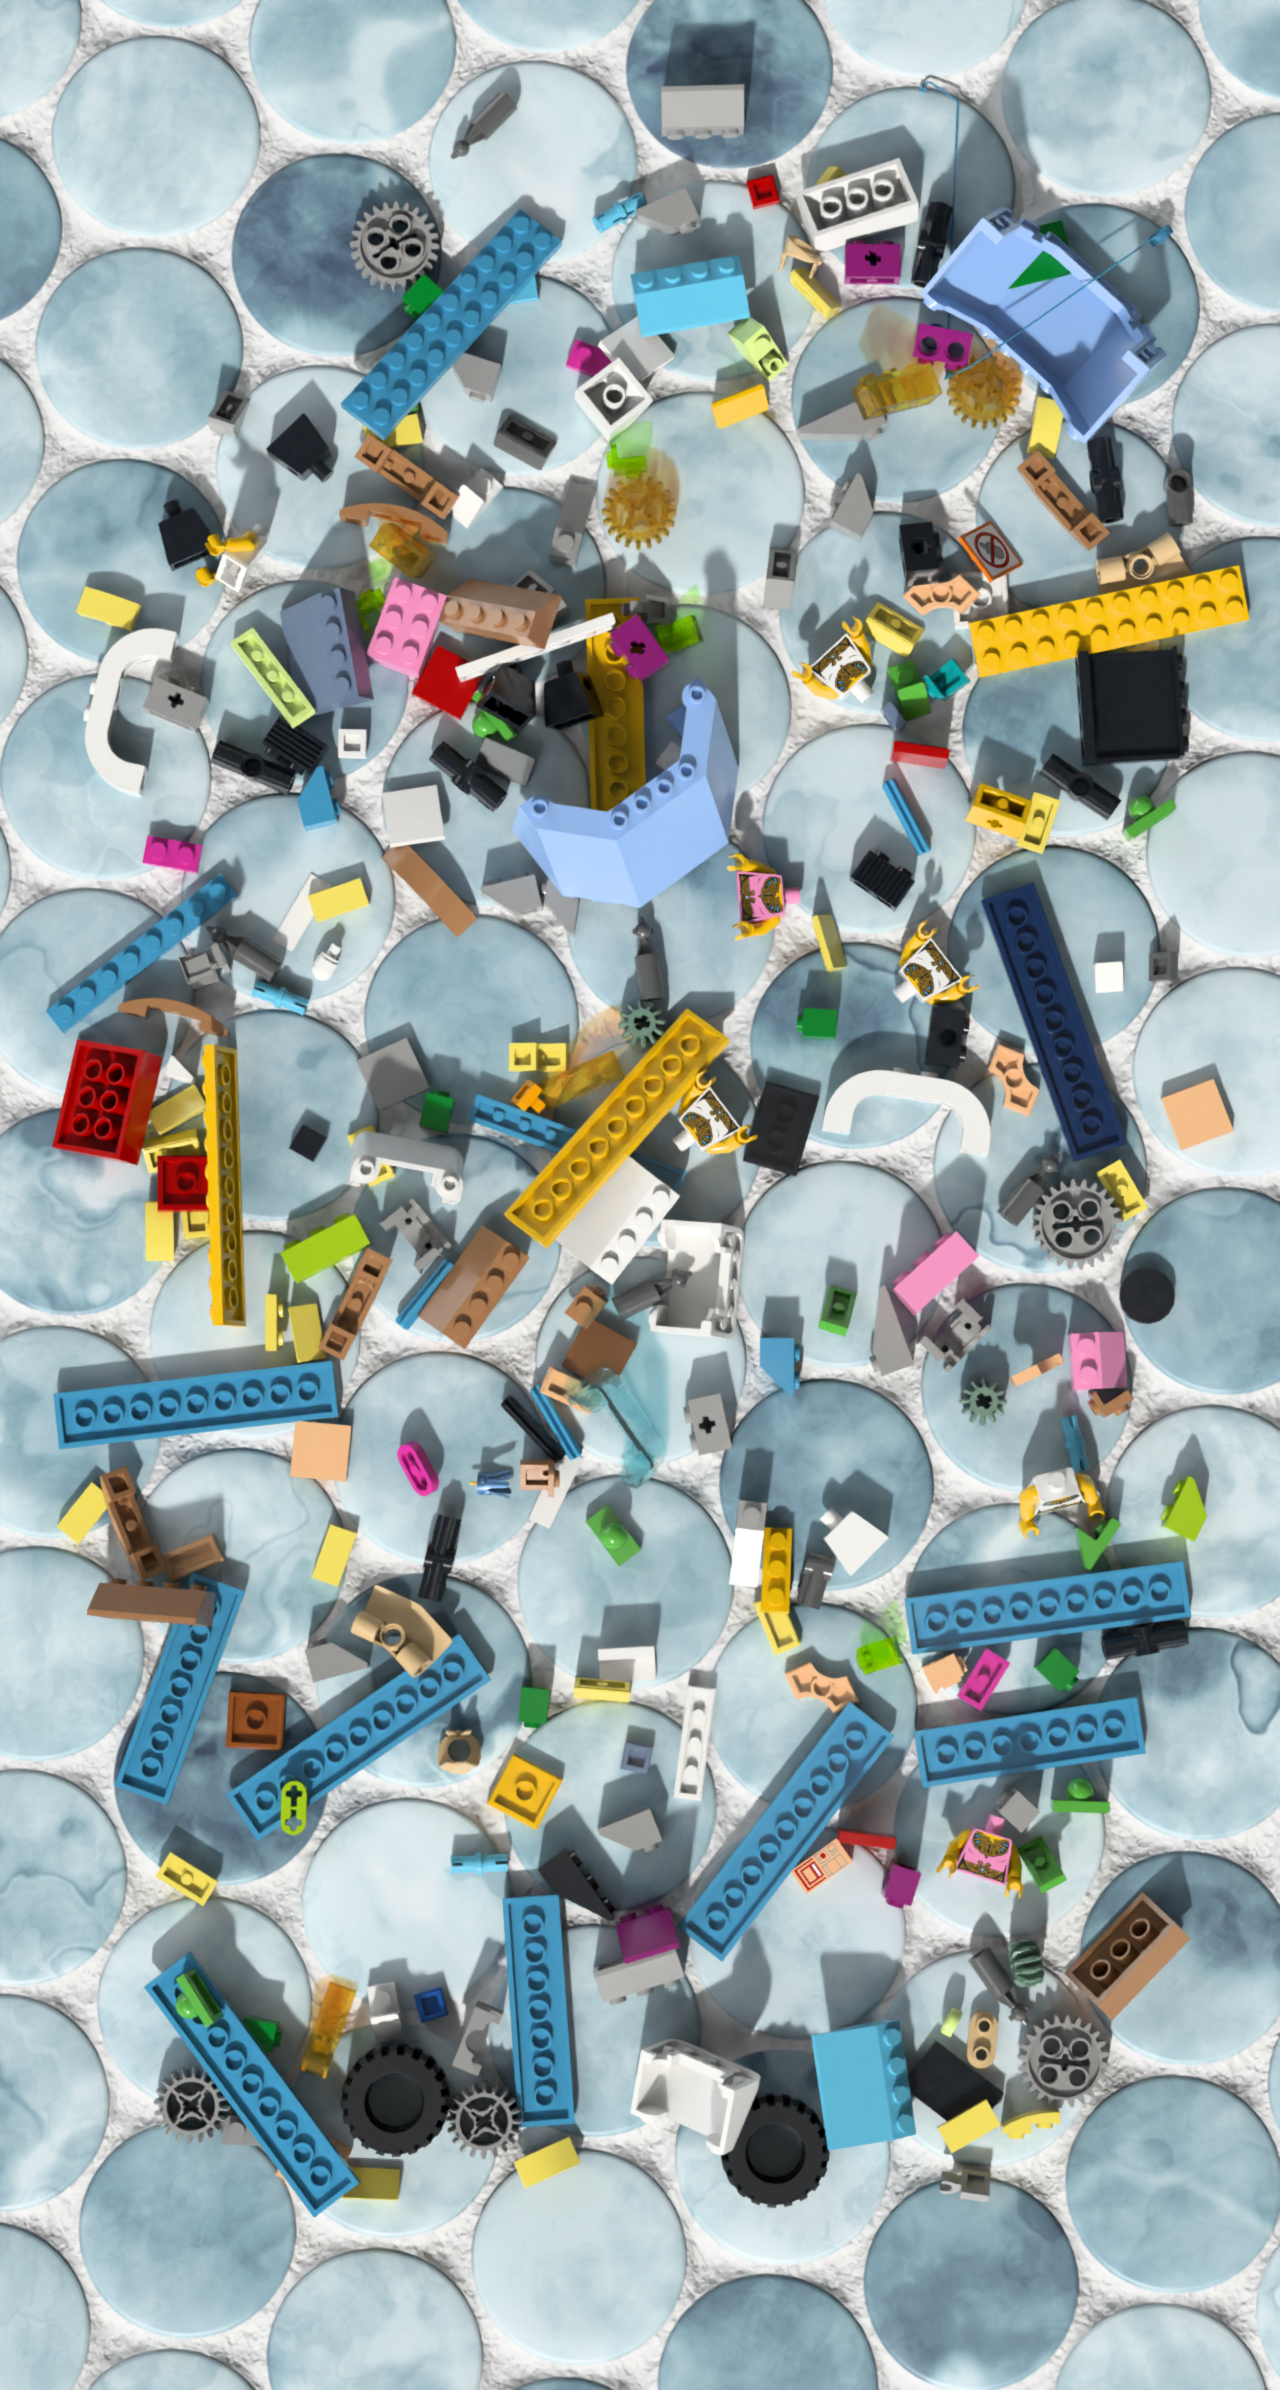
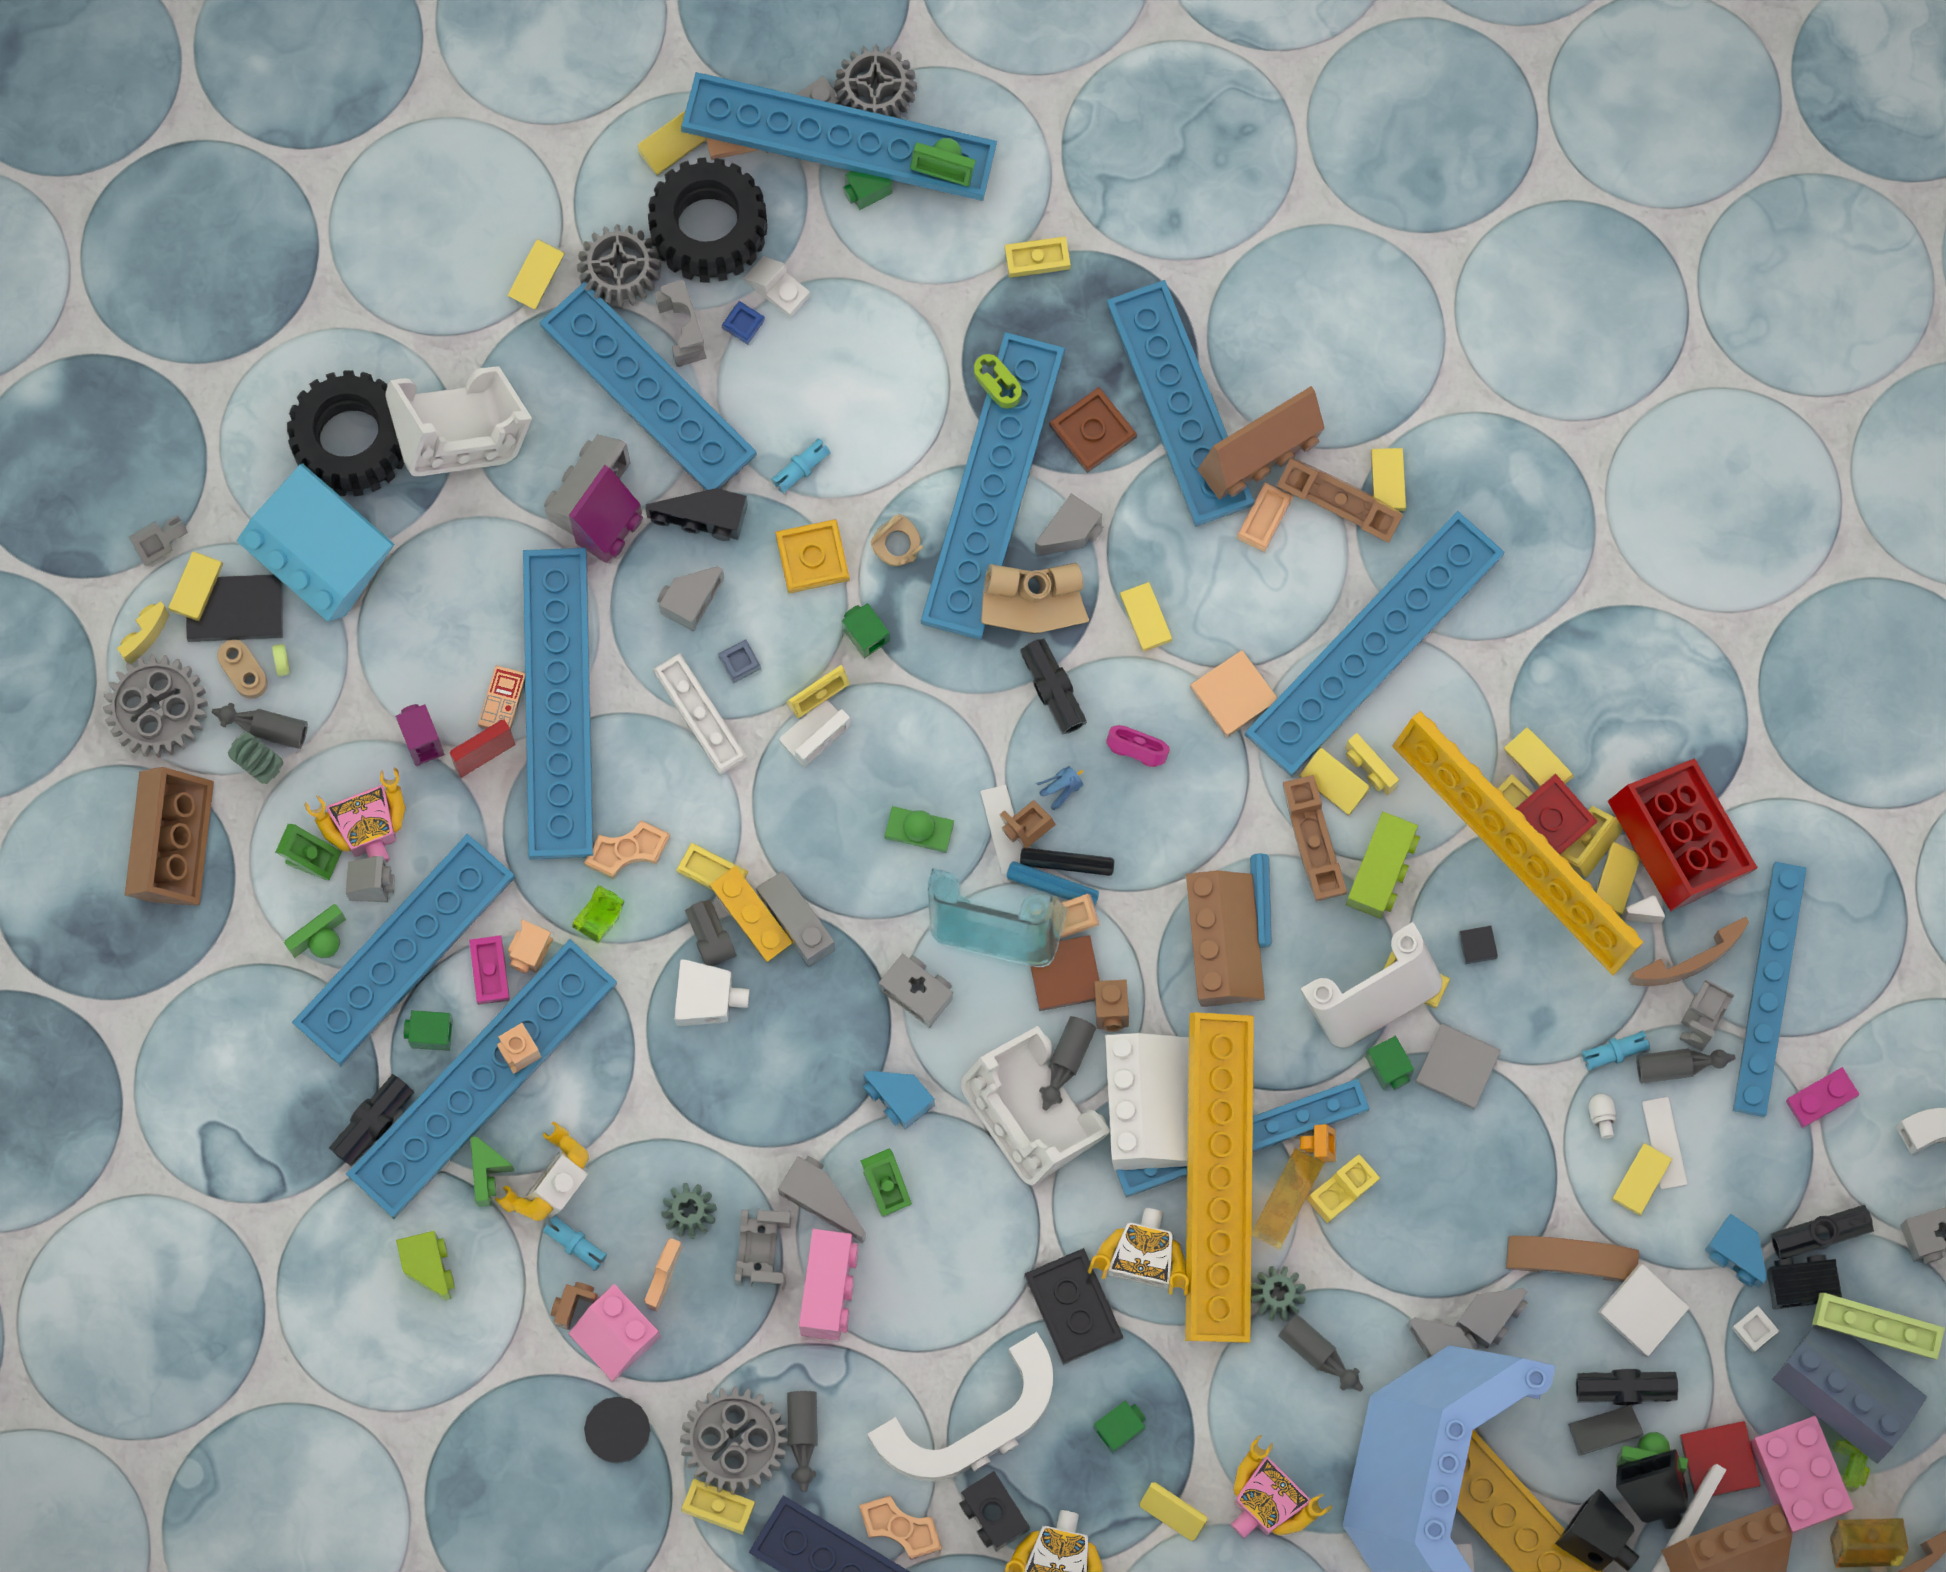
camera: 140 degrees right, 10 degrees down
(327, 2030) = (813, 232): clear yellow slope -> none
(418, 1233) = (1313, 948): light grey piece -> none
(1011, 1604) = (518, 1048): none -> light nougat window

